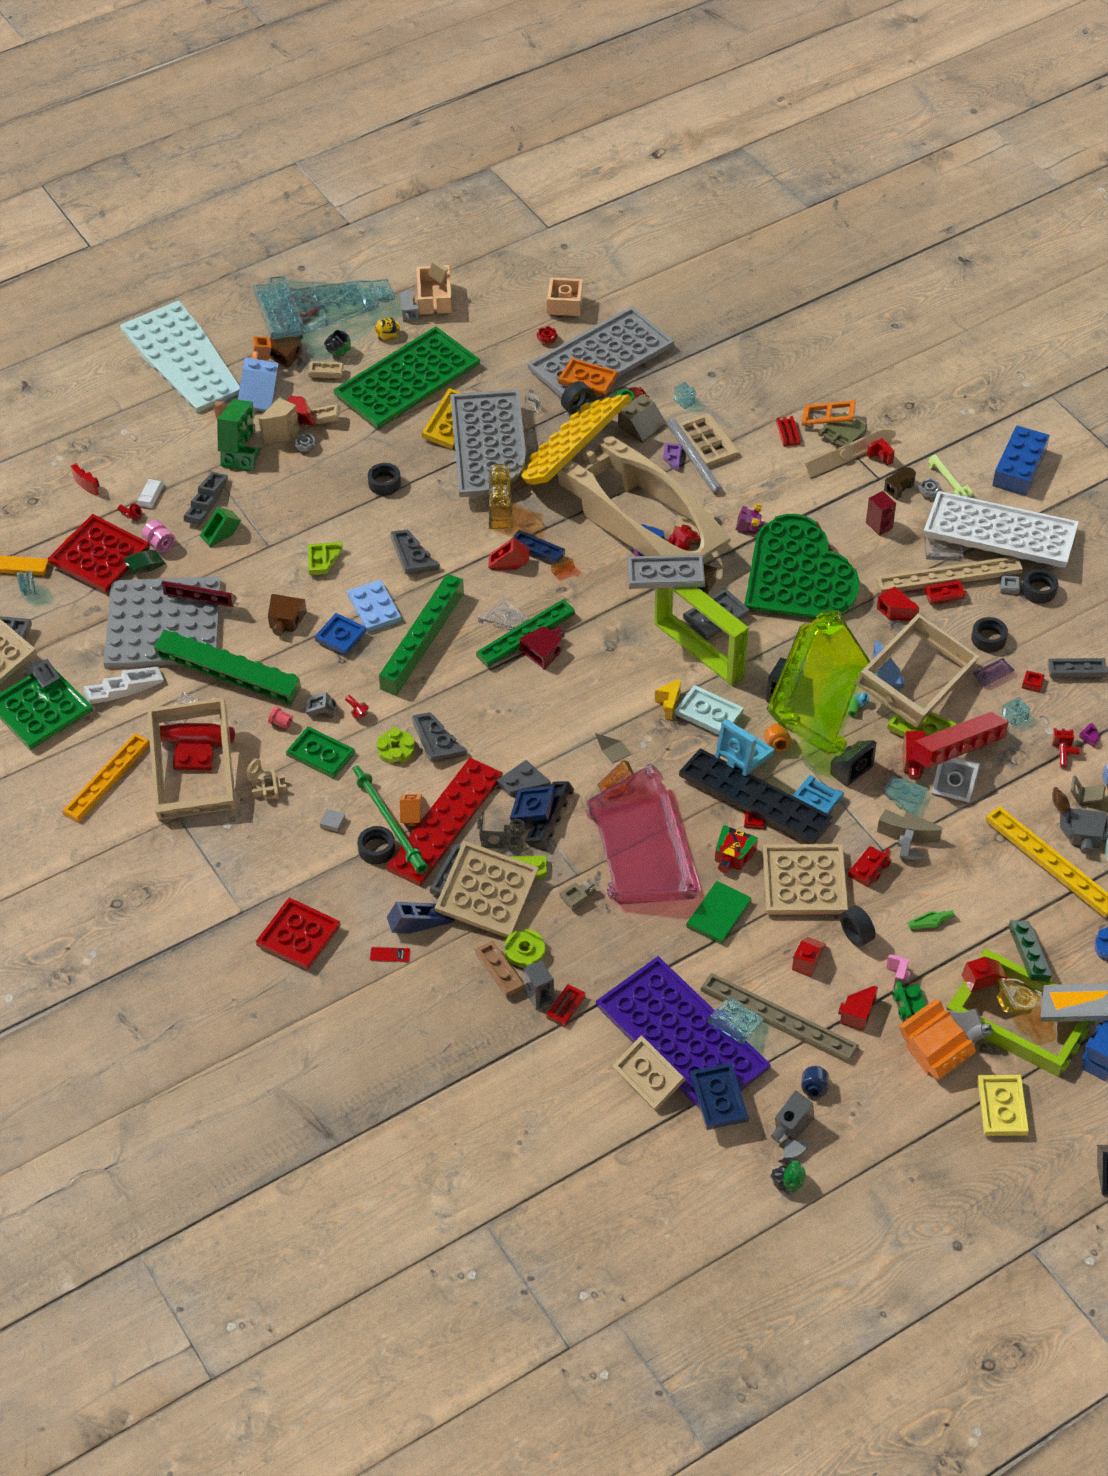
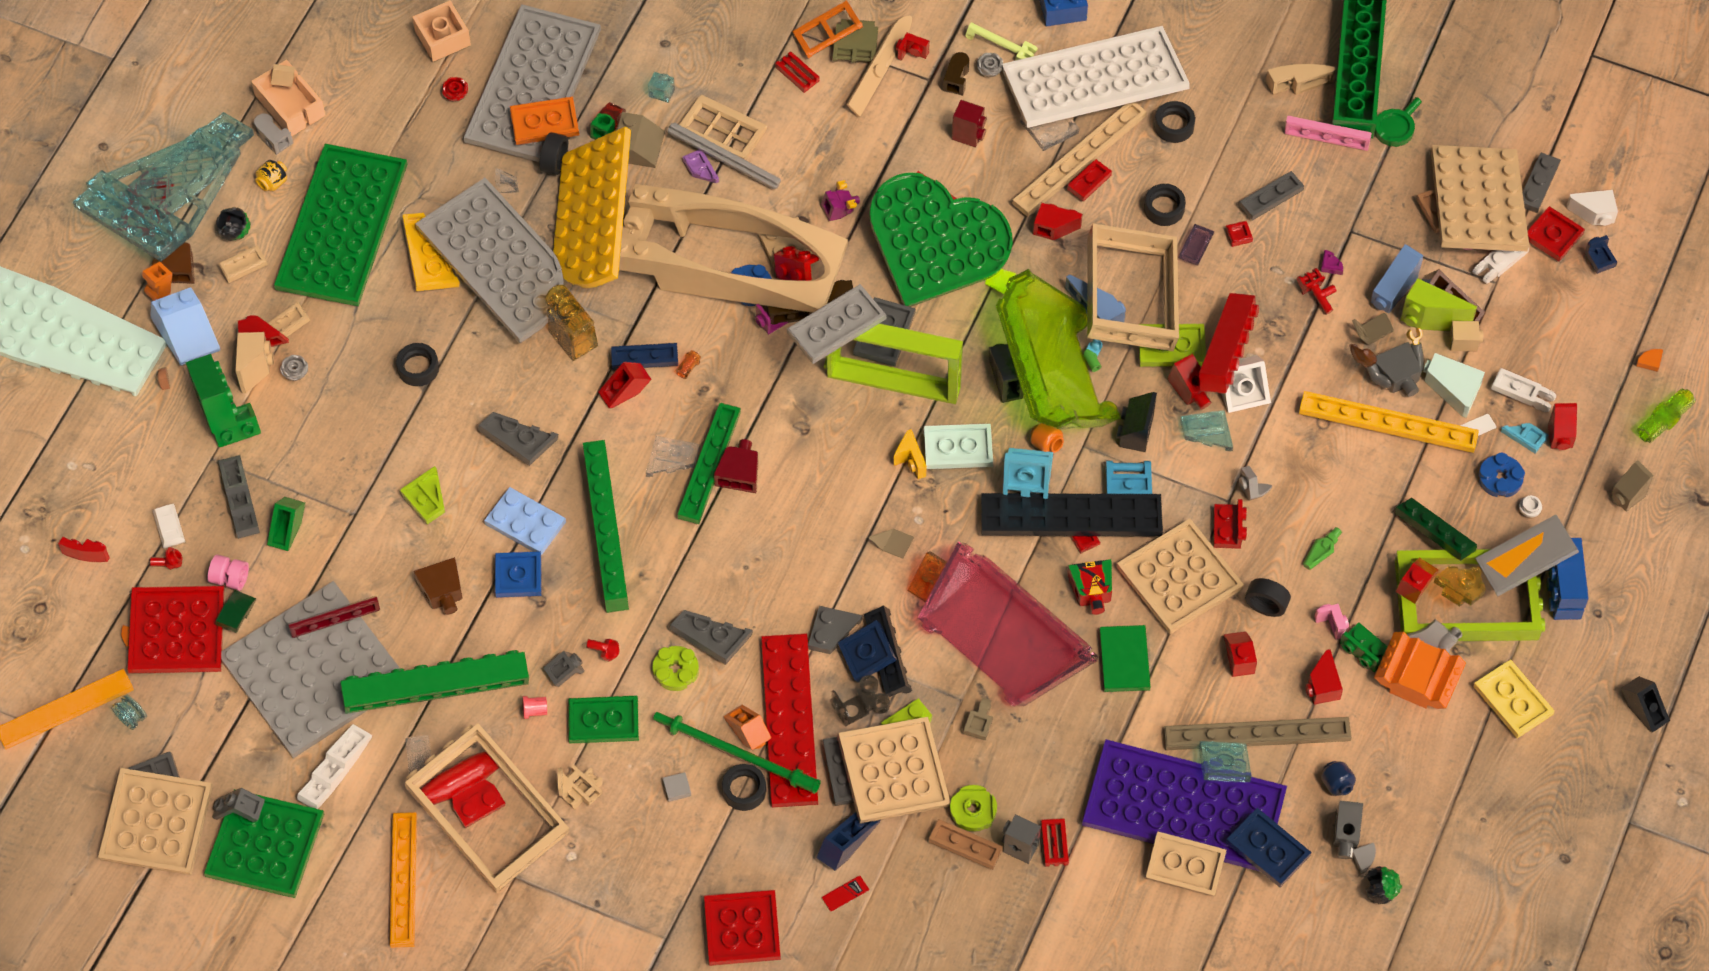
camera: 35 degrees left, 10 degrees up
(896, 825) = (1229, 468): dark tan slope -> none
(1010, 584) = (1143, 135): light grey tile -> none
(1016, 711) = (1248, 277): clear light blue plate -> none

